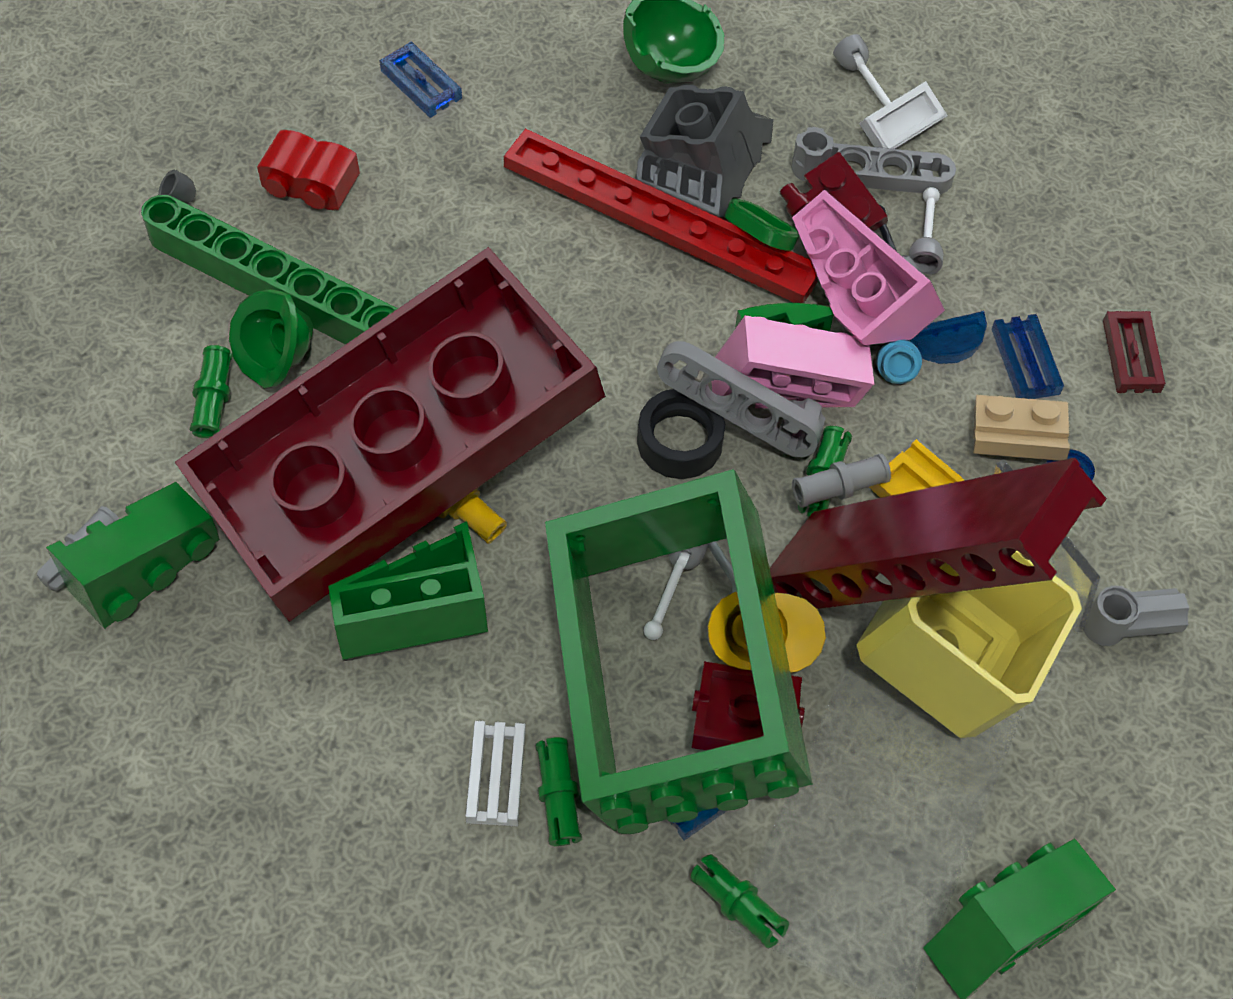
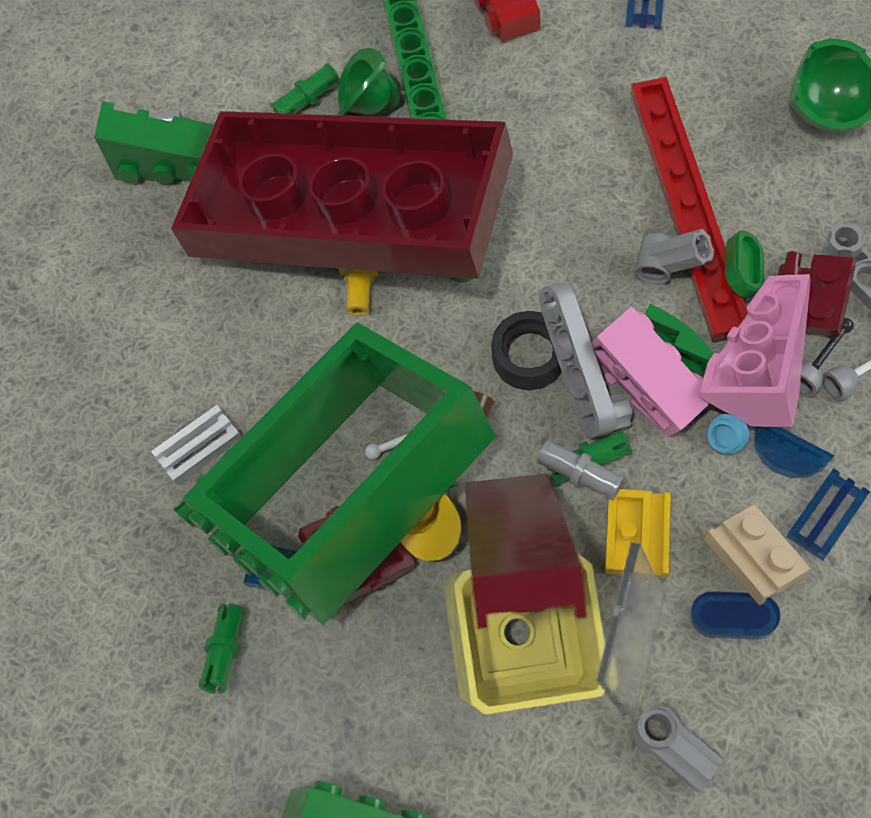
camera: 60 degrees right, 5 degrees up
(412, 600) = (261, 305): green wedge -> none
(695, 270) = (665, 254): none -> light grey piece
(702, 146) = (770, 180): dark grey slope -> none

